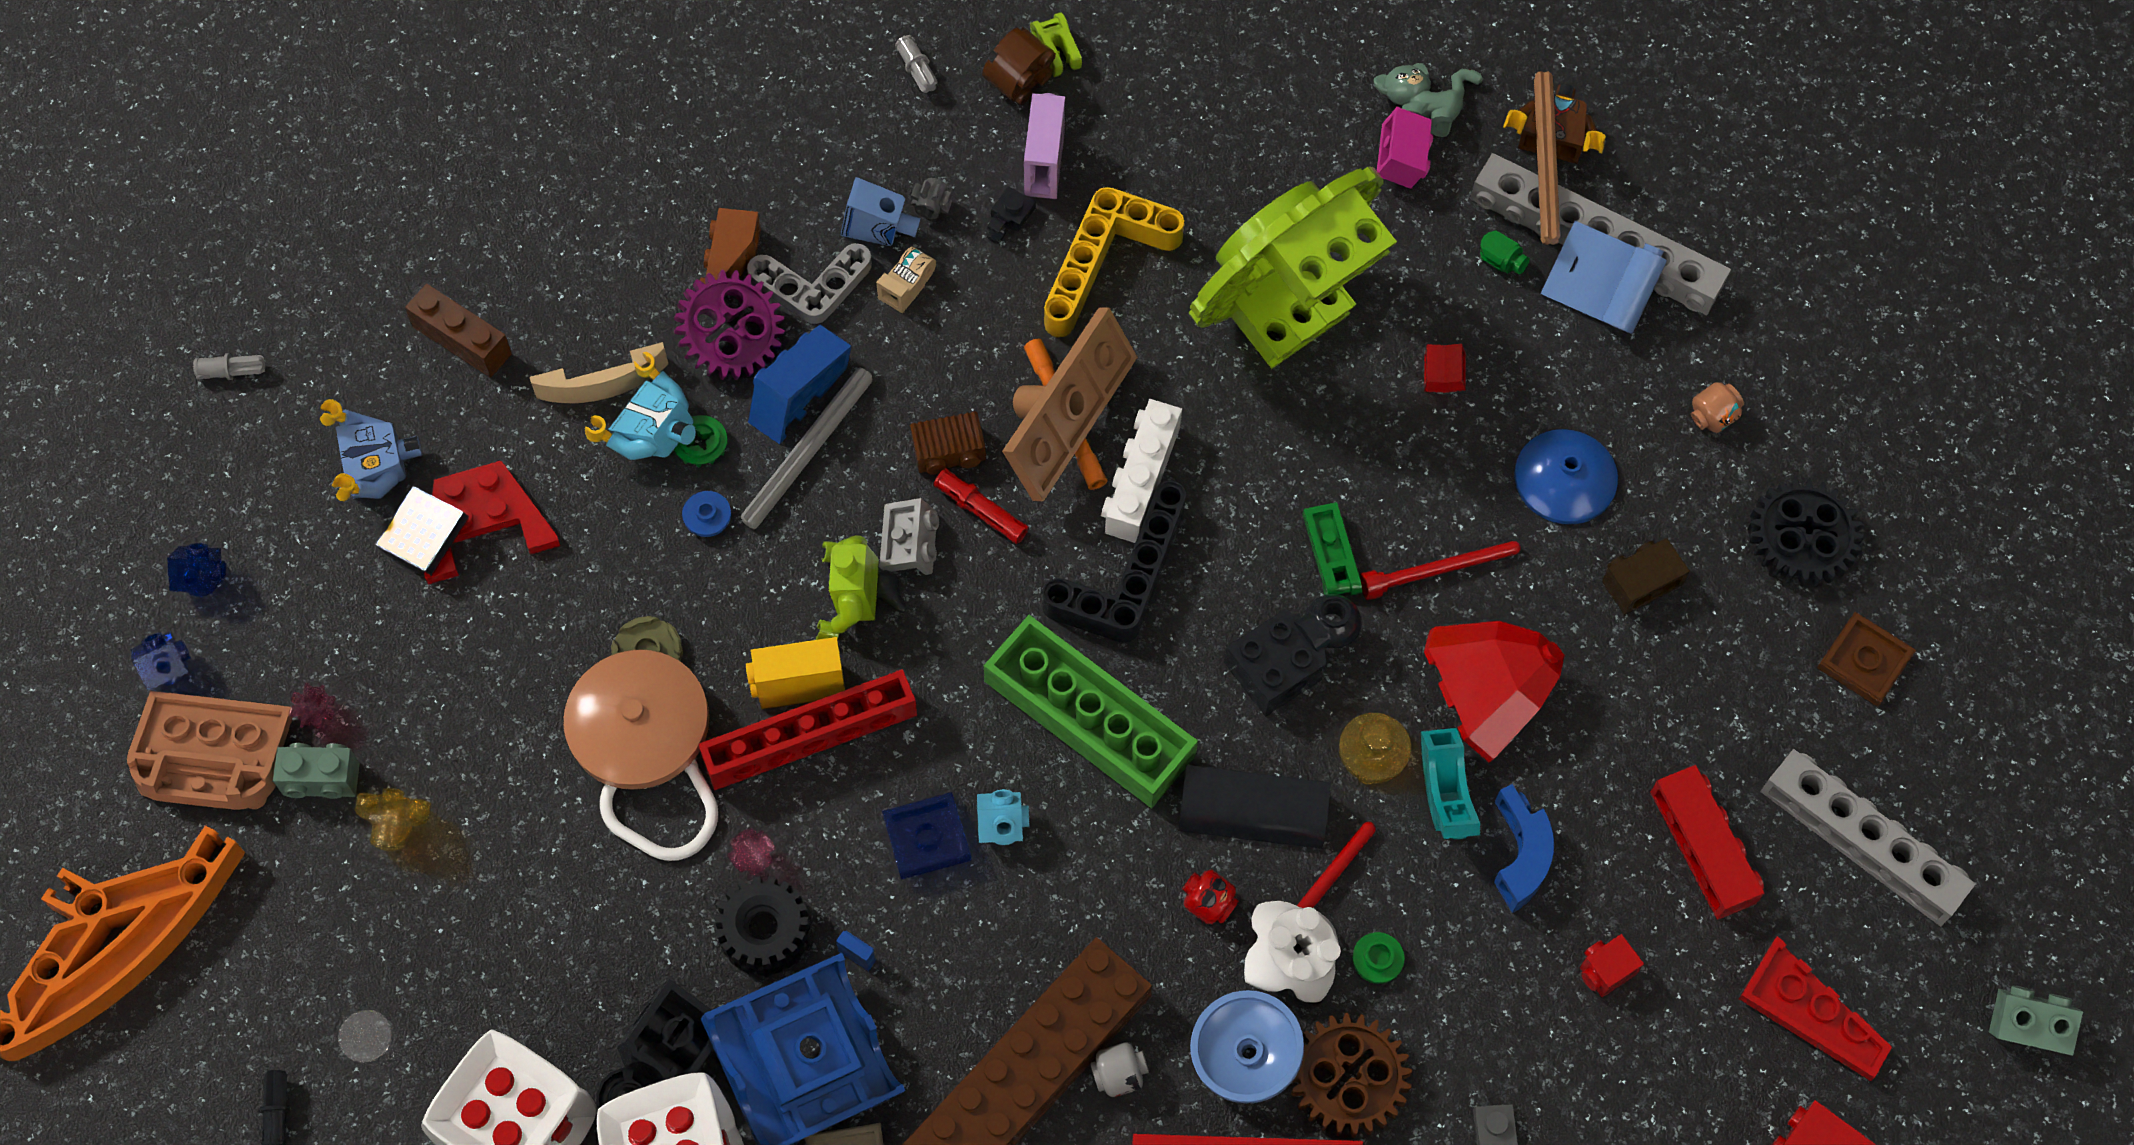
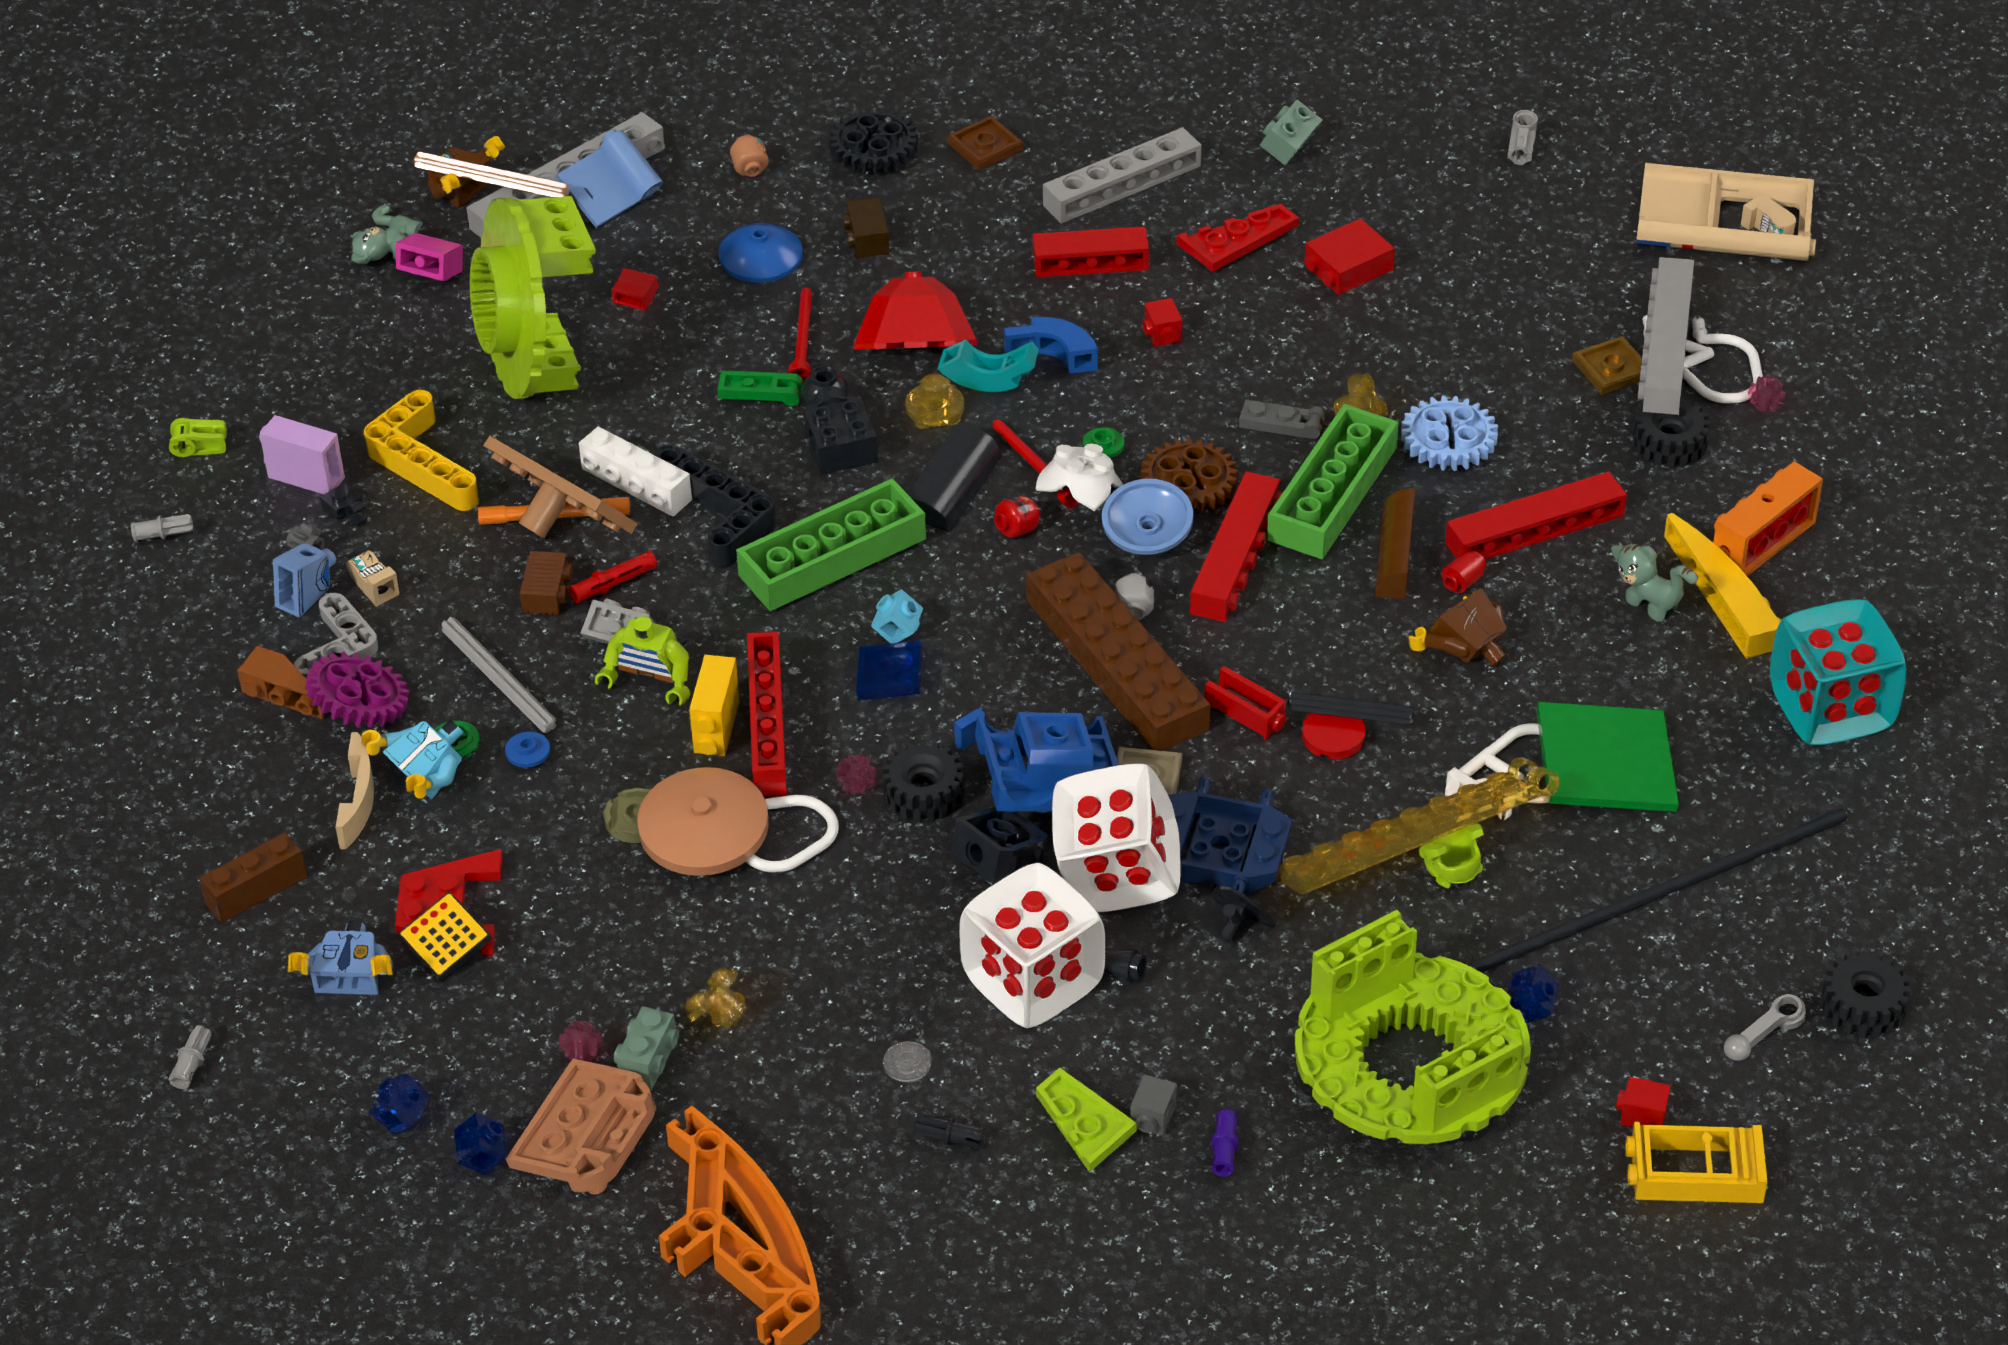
camera: 70 degrees left, 20 degrees down
(795, 379) = (438, 660): blue wedge -> none
(1019, 65) = (211, 454): reddish brown brick -> none

